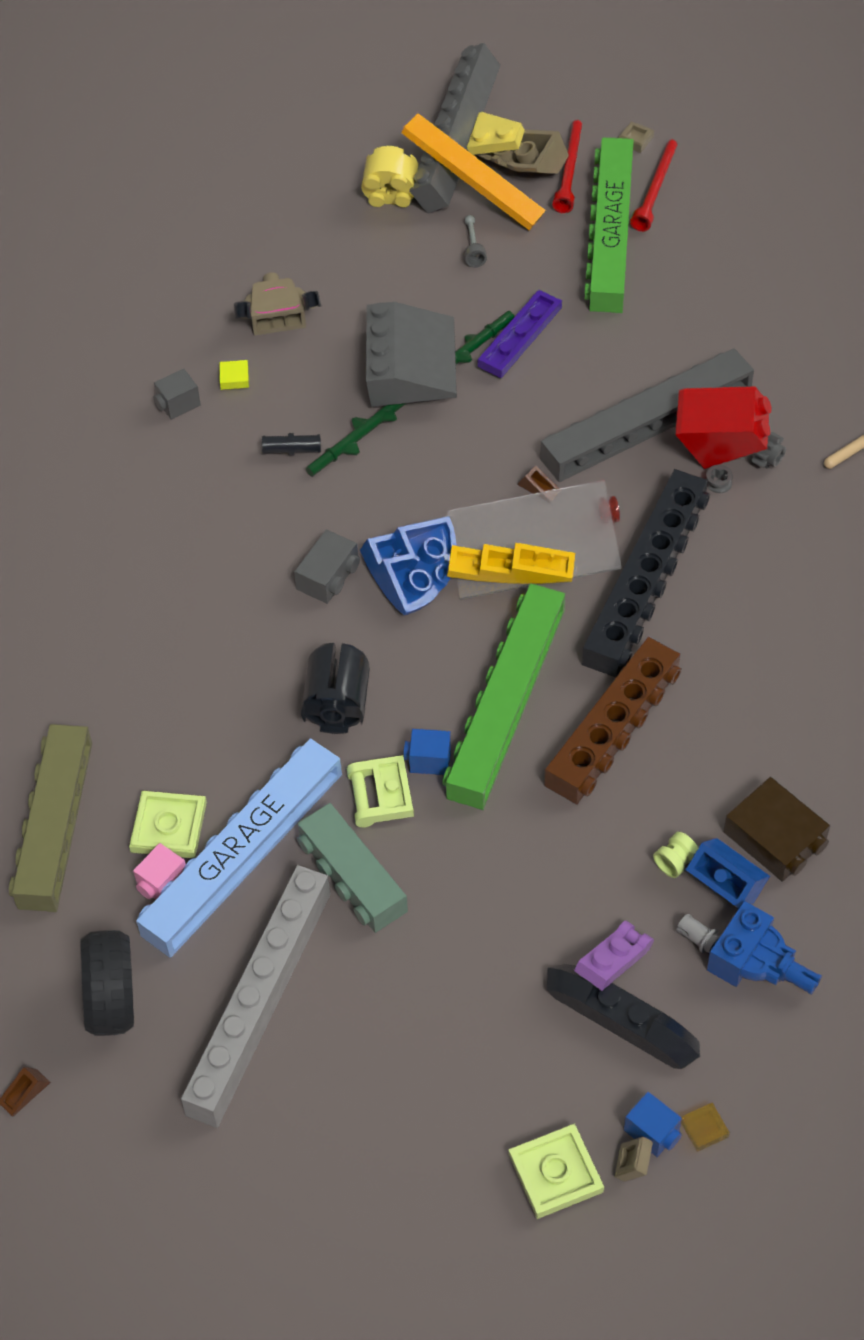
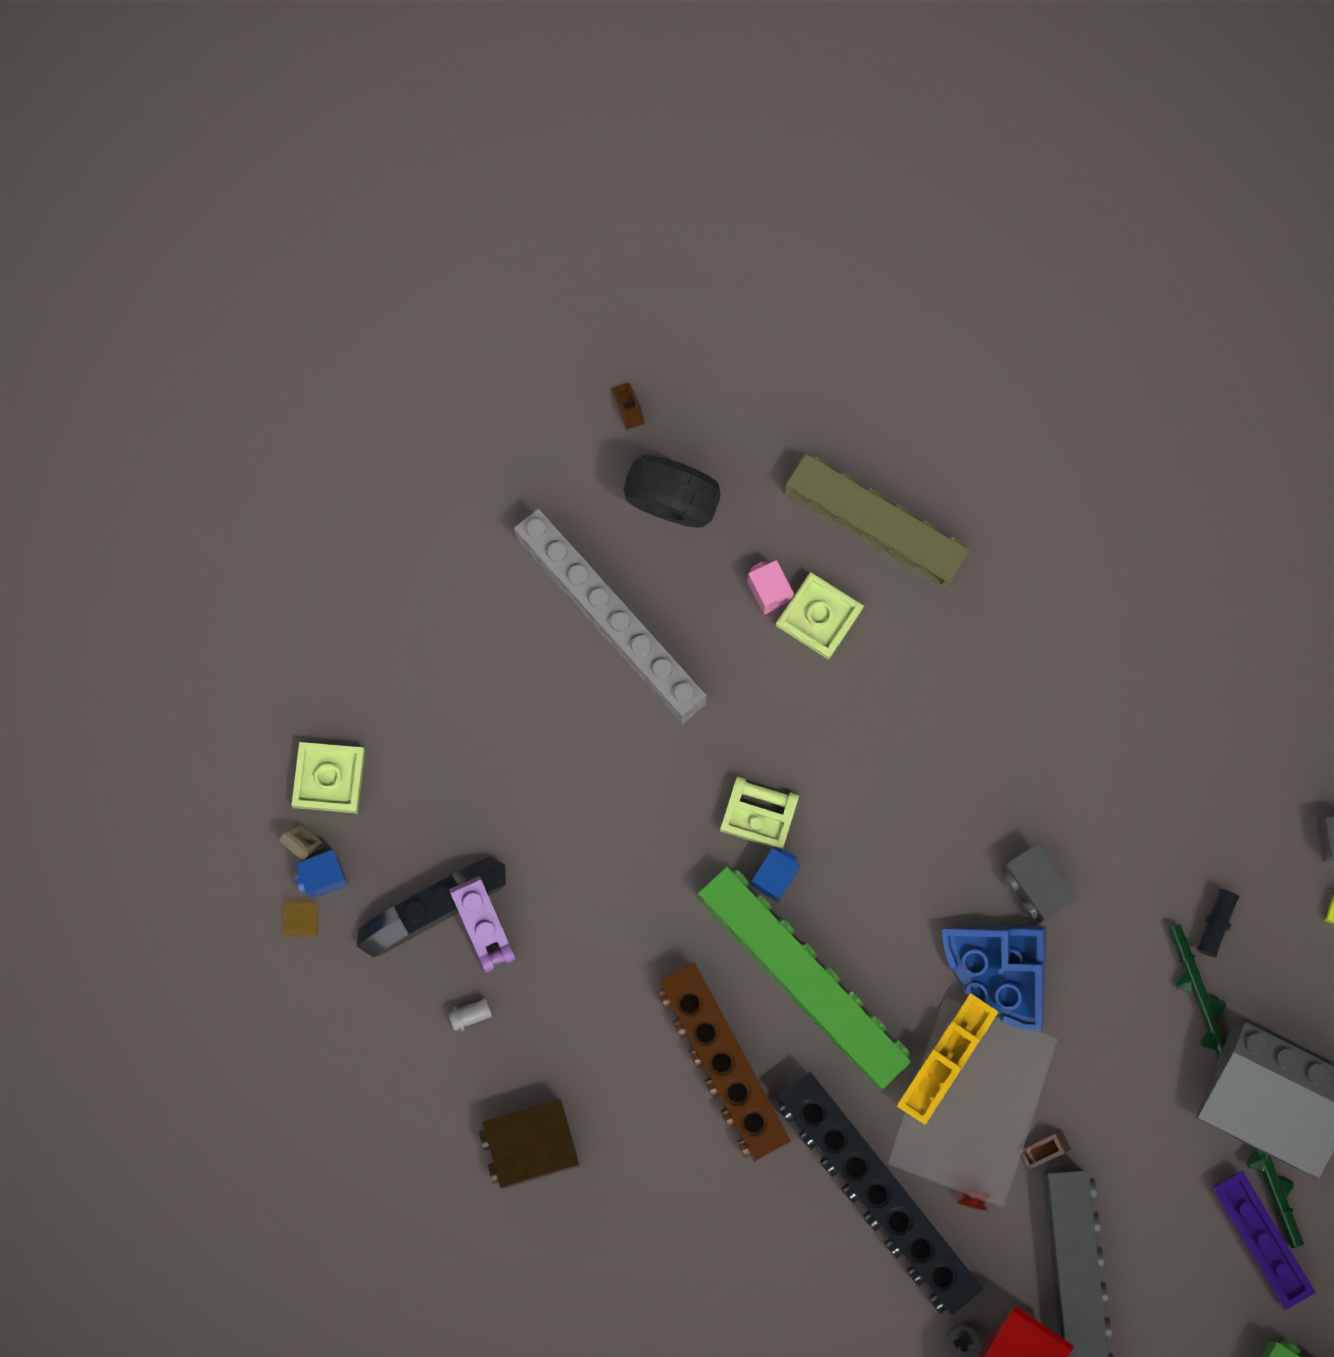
camera: 115 degrees right, 20 degrees up
(238, 847) = (763, 667): light blue brick -> none
(335, 688) = (885, 820): black cylinder -> none
(352, 868) = (691, 748): sand green brick -> none
(677, 853) = (553, 1038): yellowish green wheel -> none
(727, 872) = (506, 1069): blue brick -> none
(757, 953) = (424, 1049): blue brick -> none

